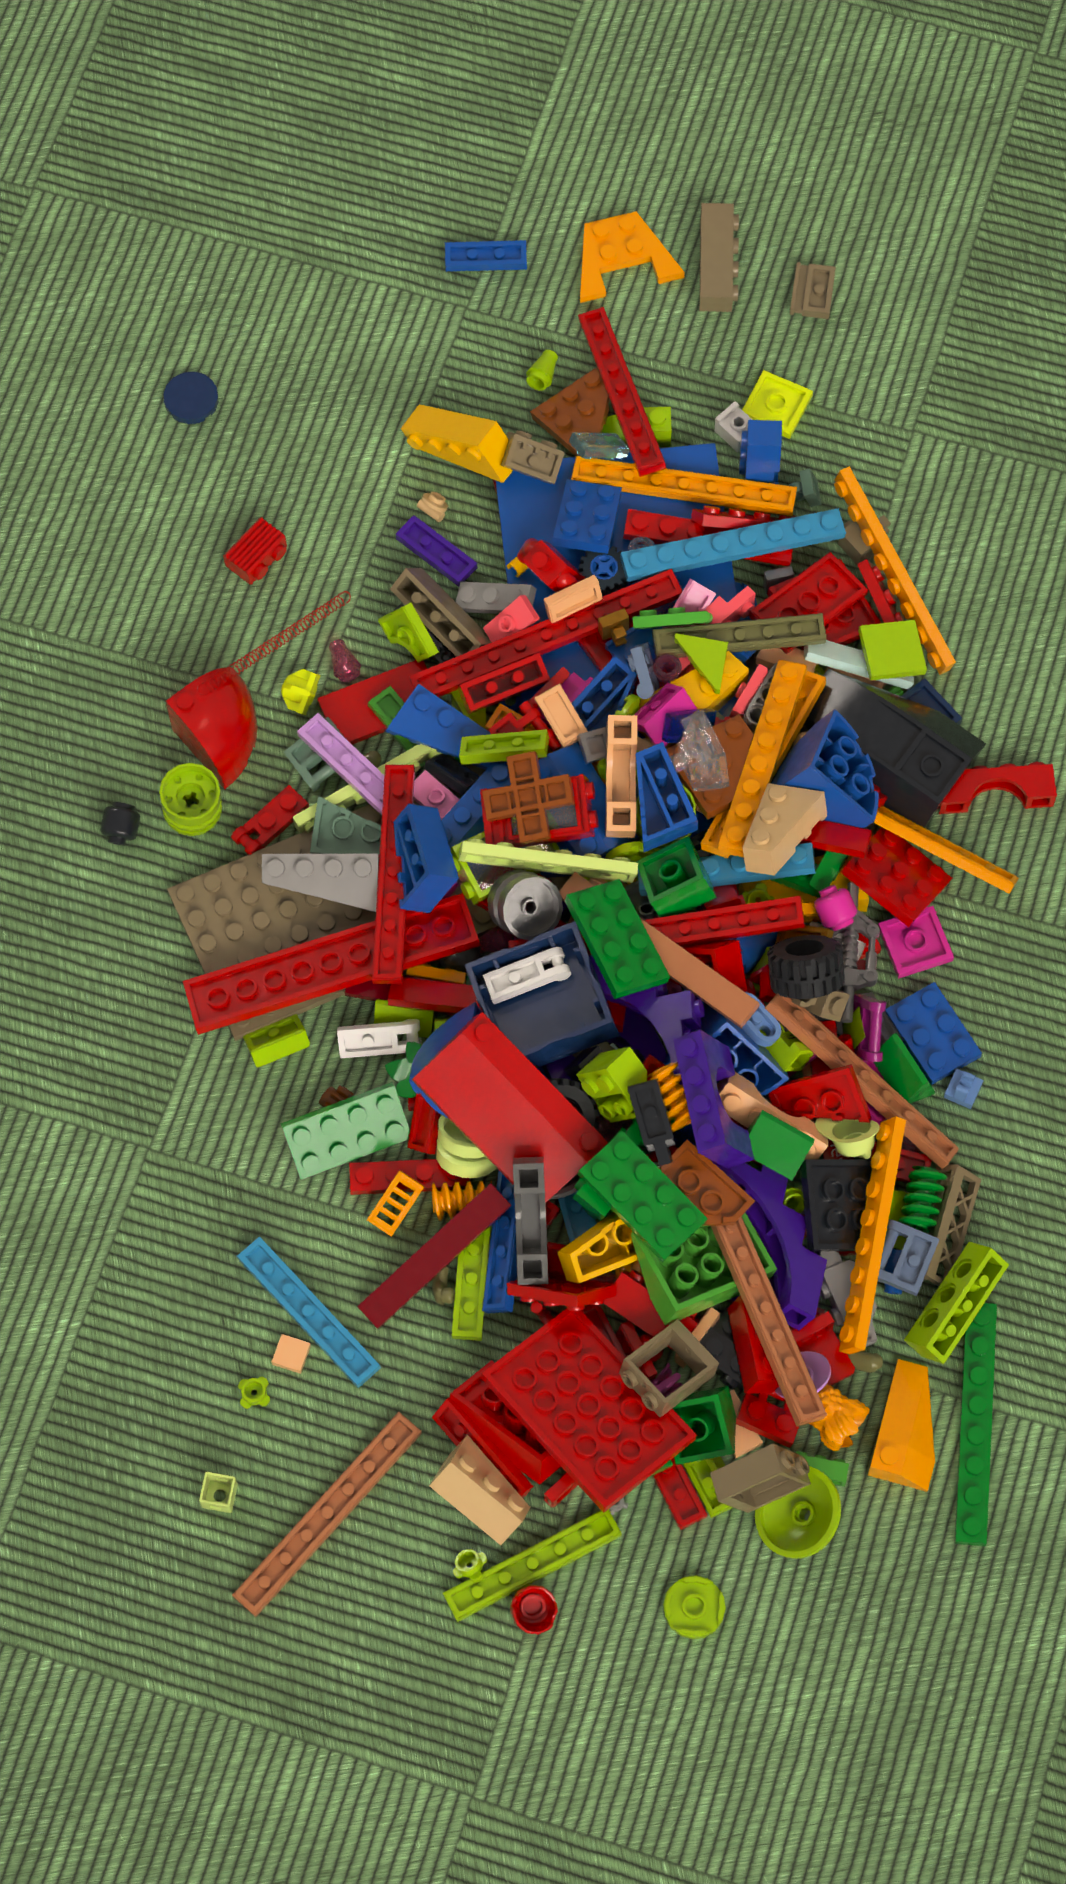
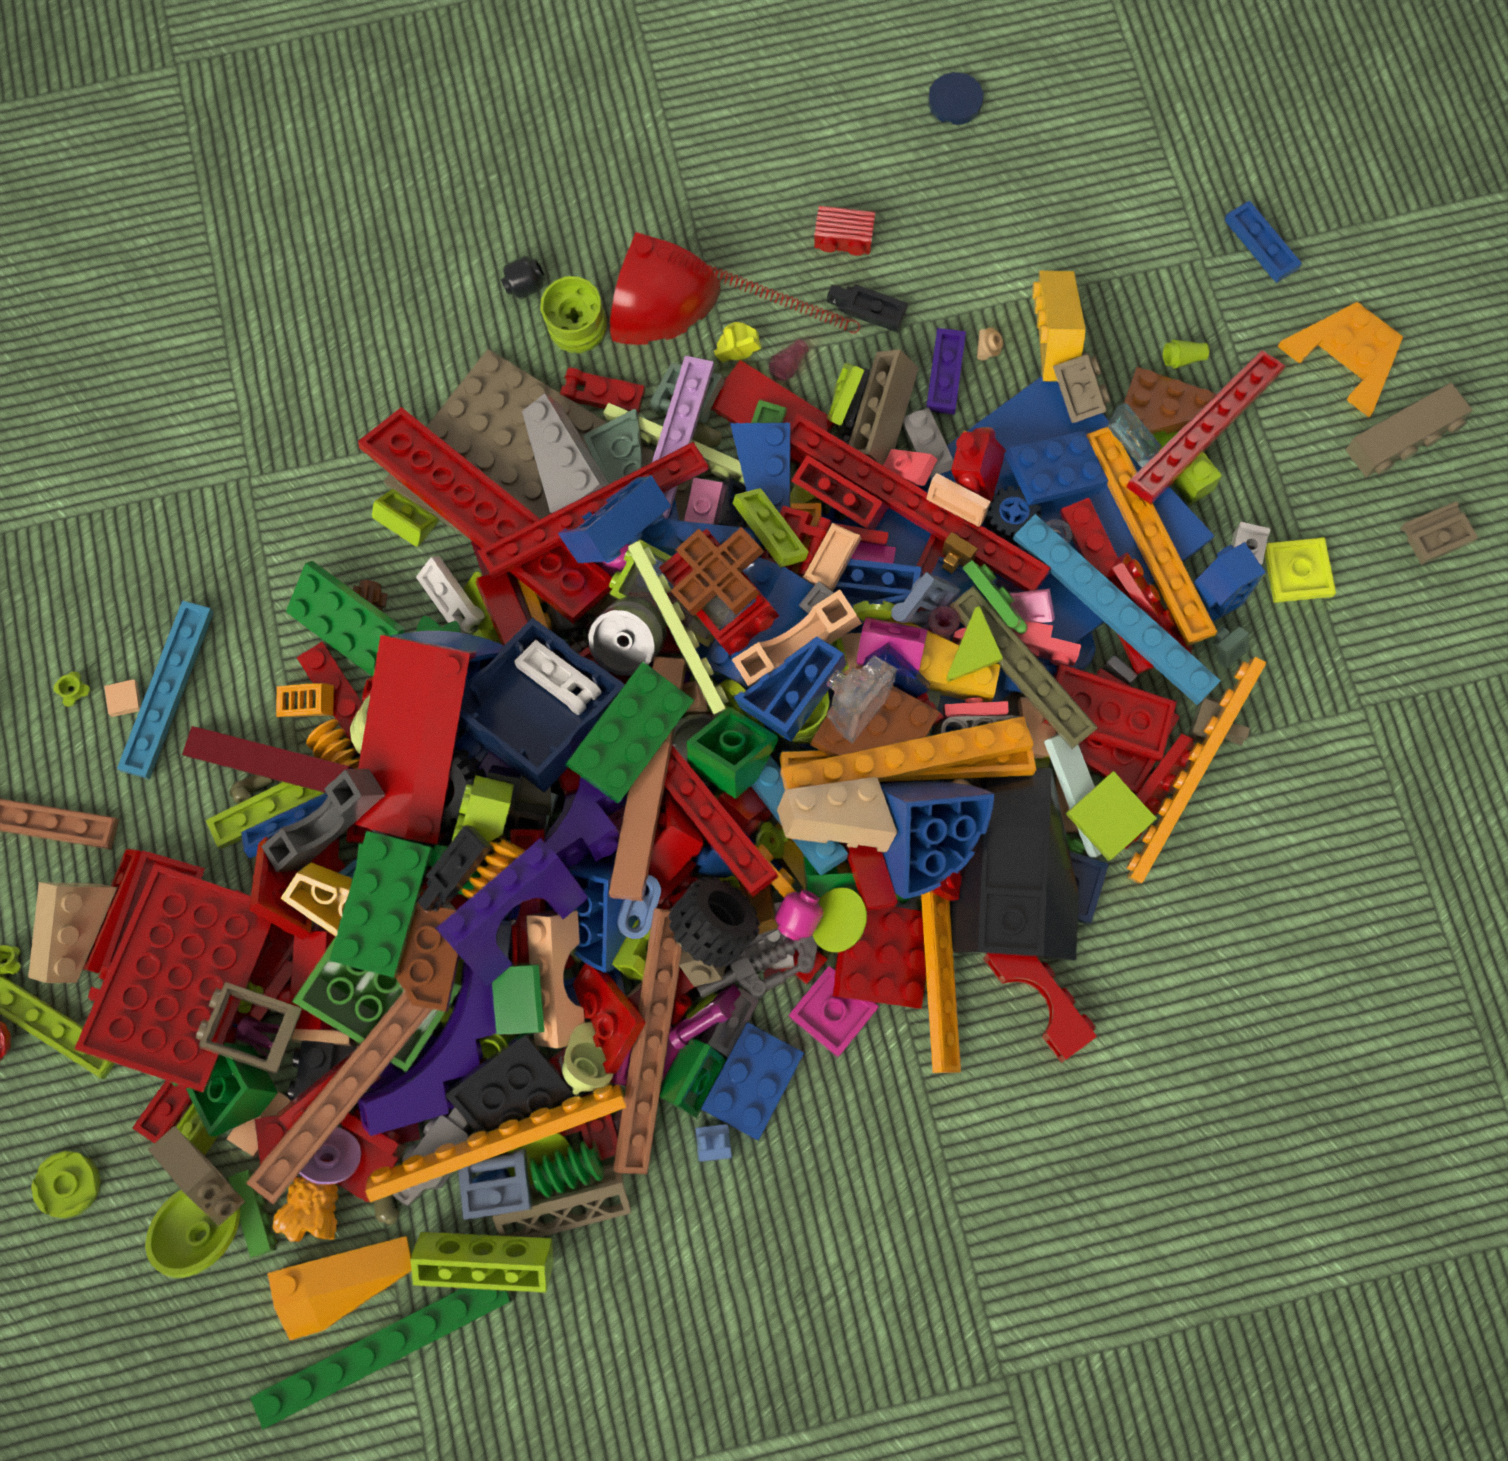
camera: 60 degrees right, 5 degrees up
(337, 573) = (868, 306): none -> black hinge
(861, 877) = (842, 920): none -> lime piece

